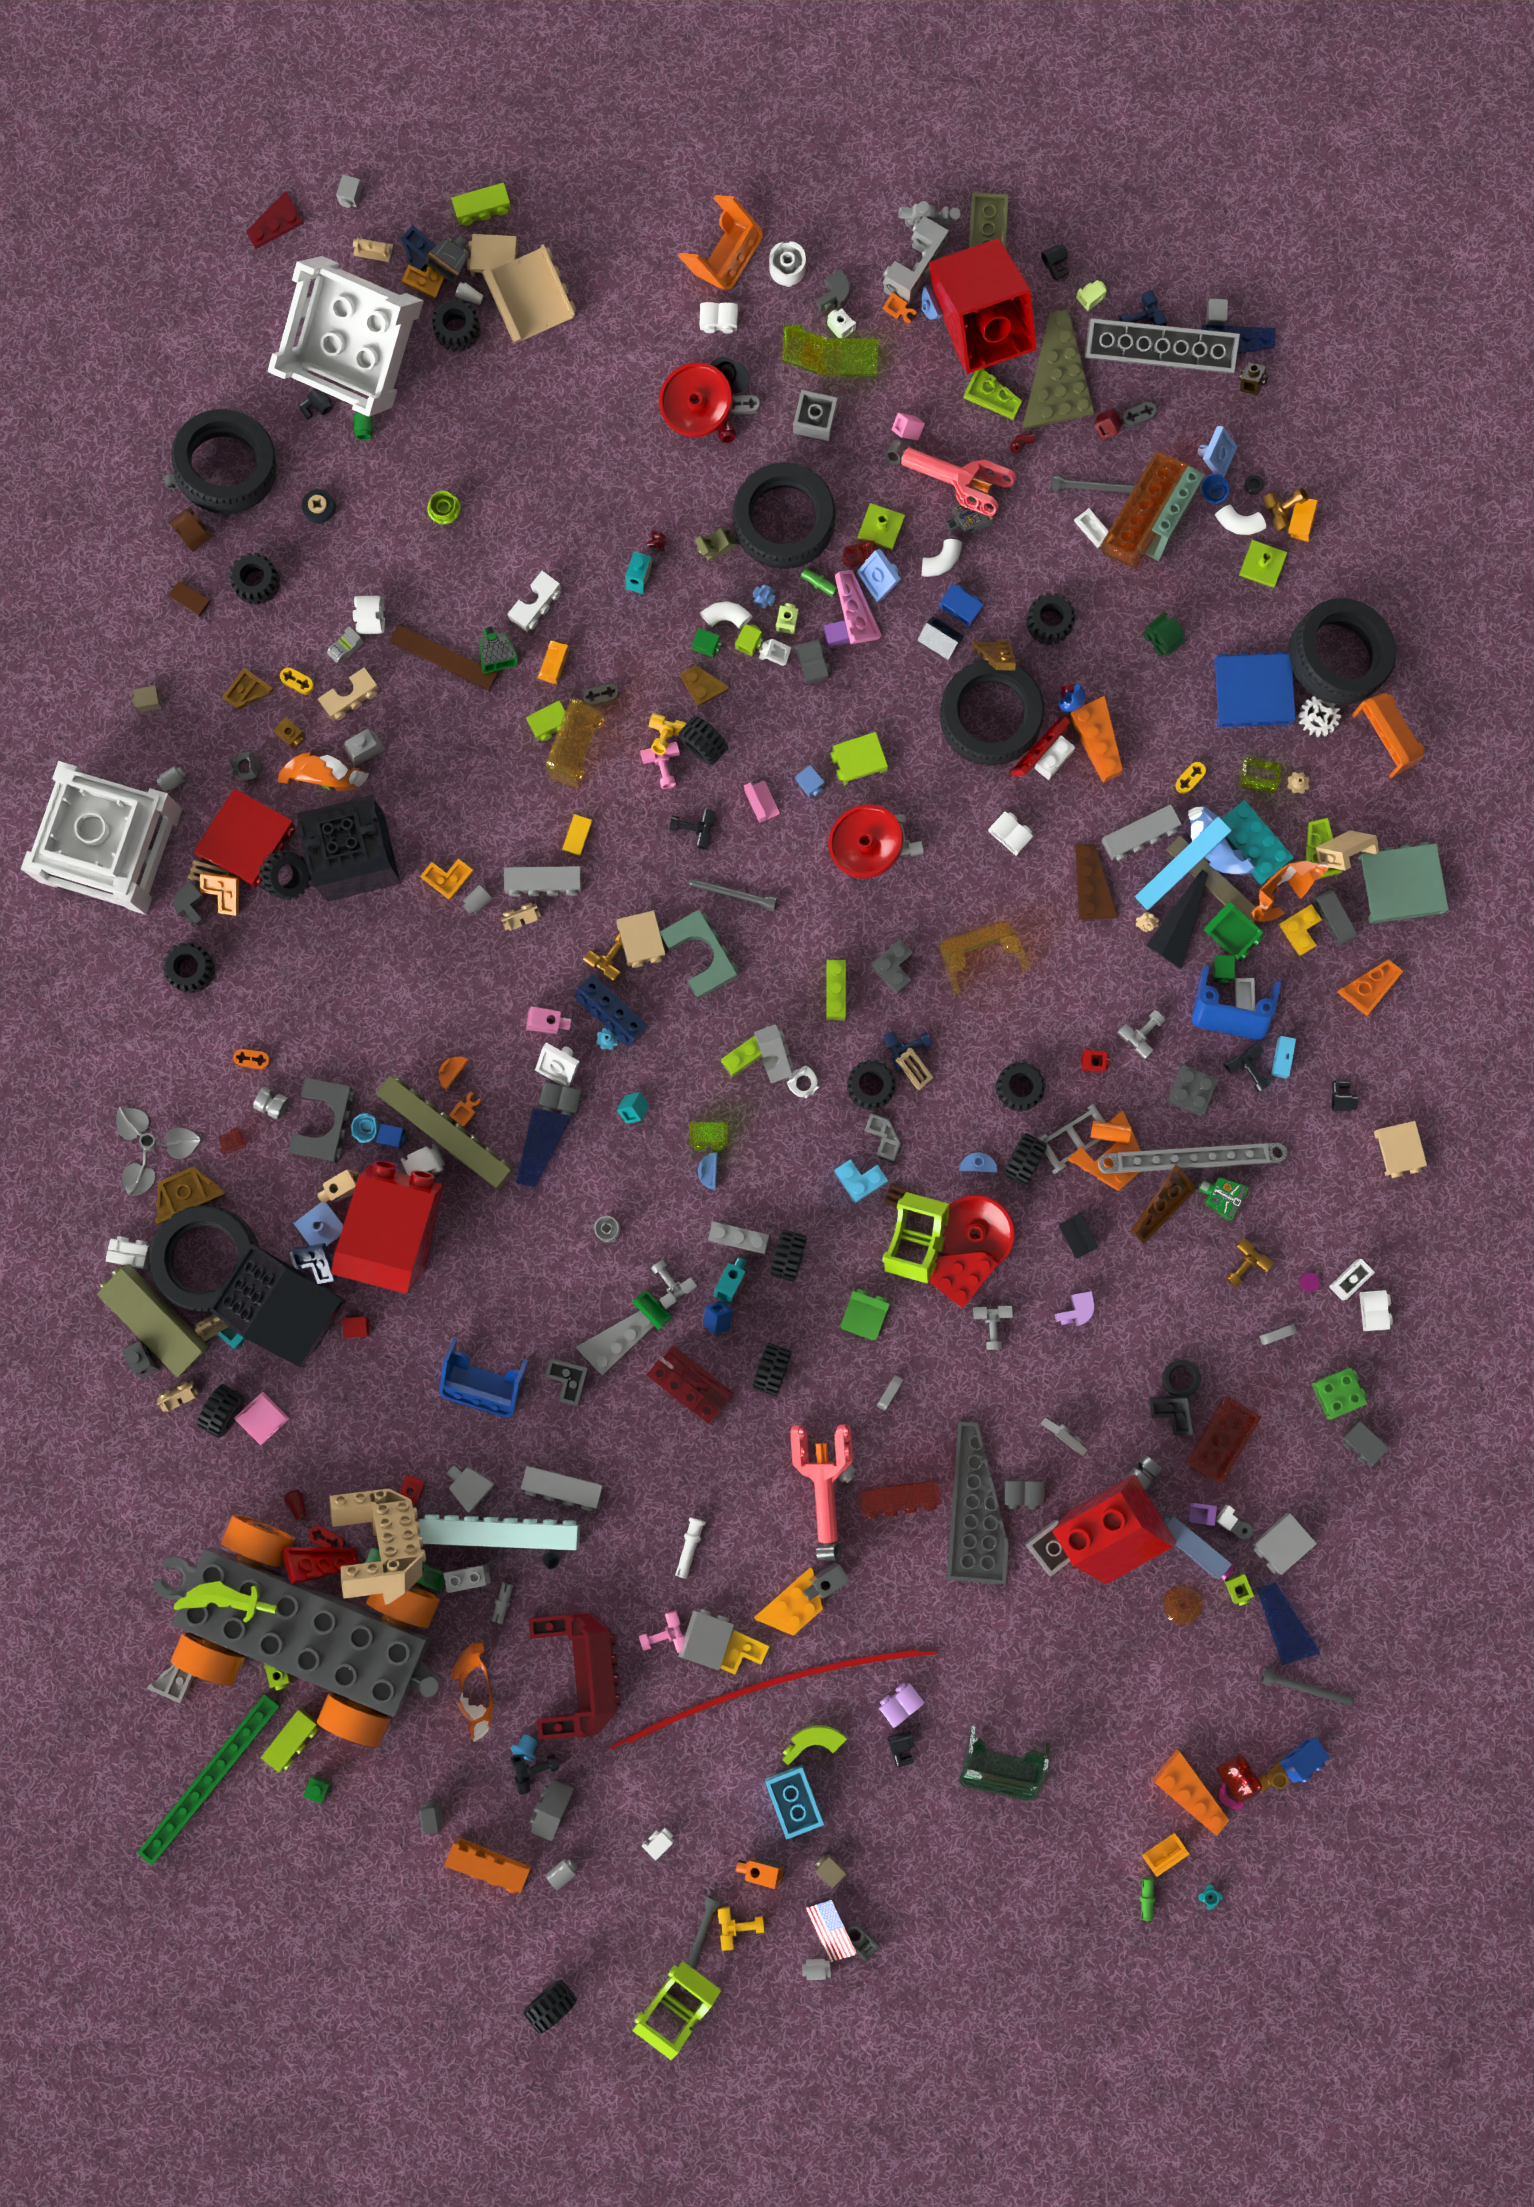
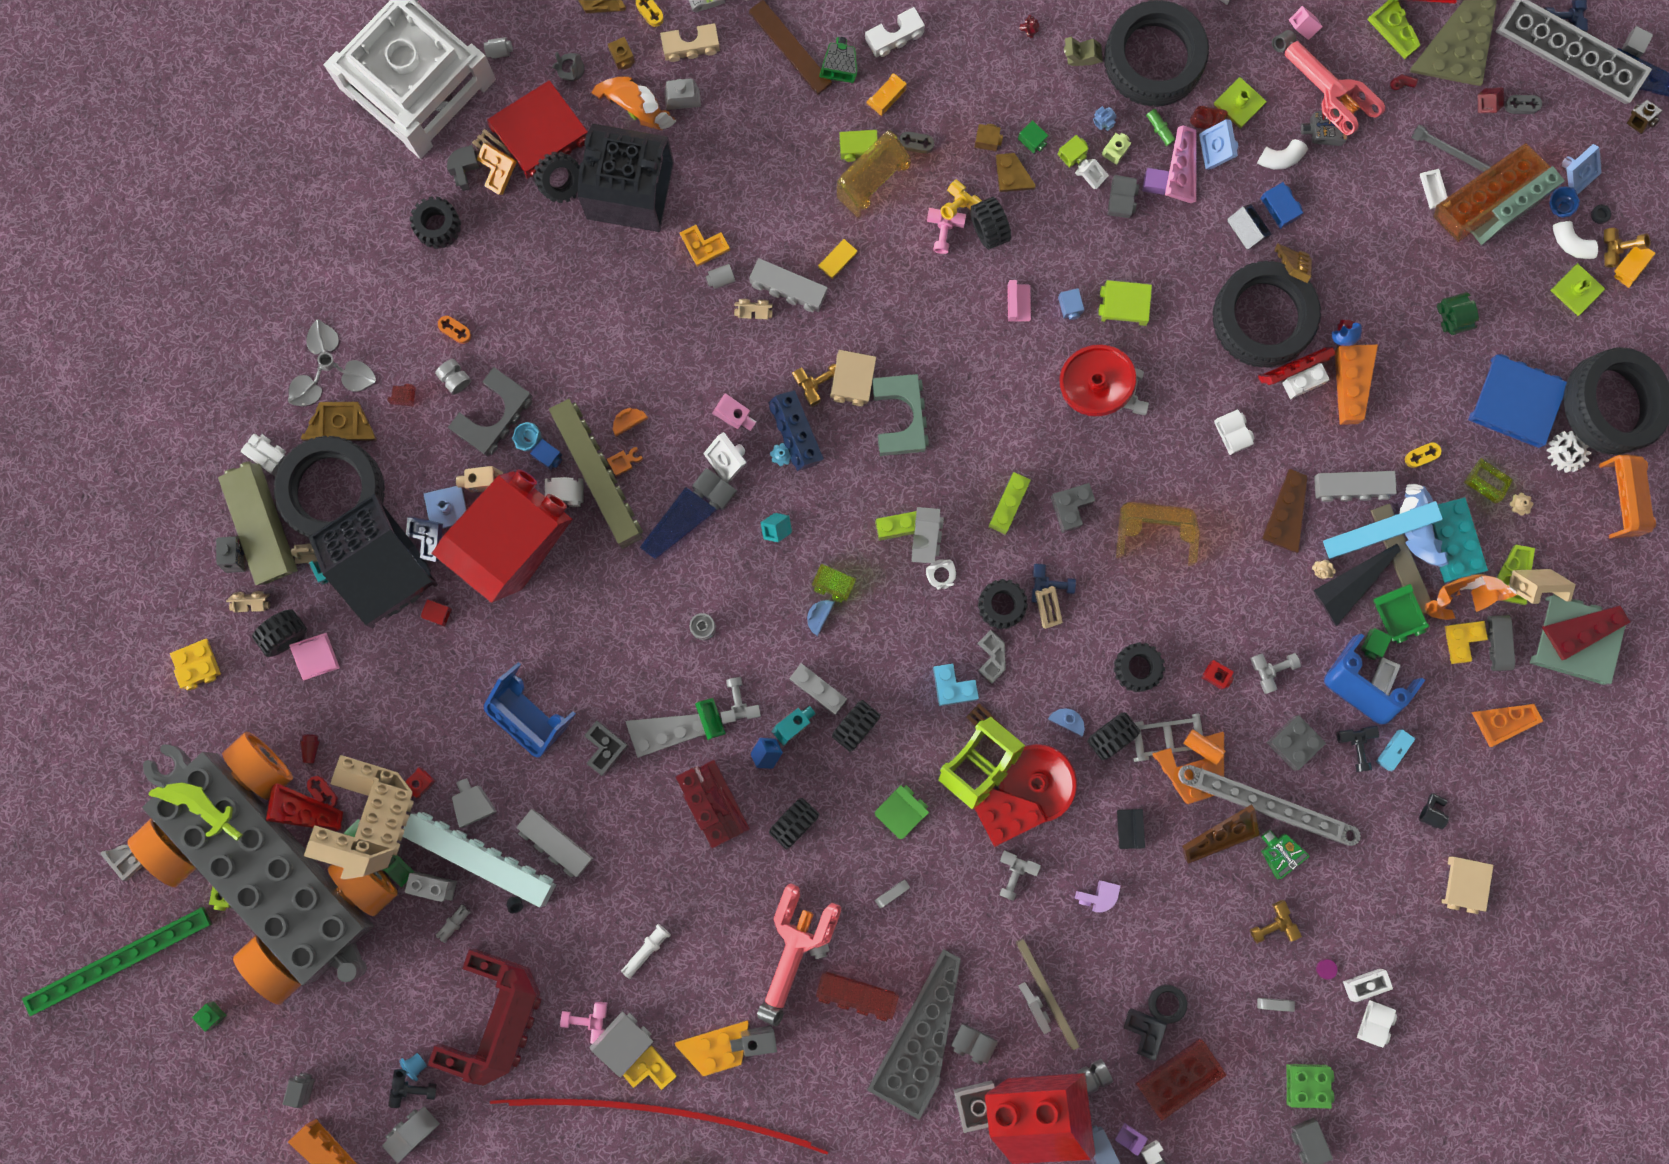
camera: 20 degrees right, 0 degrees up
(154, 1476) = (195, 665): none -> yellow plate
(290, 1740) = (205, 961): lime brick -> none
(479, 1716) = (382, 1016): orange animal -> none
(639, 570) = (1003, 45): teal torso -> none
(665, 661) = (988, 137): none -> pearl gold brick
(702, 827) = (953, 302): black bar -> none
(726, 611) = (1063, 116): white cylinder -> none
(767, 902) = (983, 396): dark grey piece -> none
(1046, 632) = (1369, 242): black tyre -> none
(1070, 1419) = (1047, 994): none -> dark tan tile
(1402, 874) = (1580, 632): none -> dark red wing

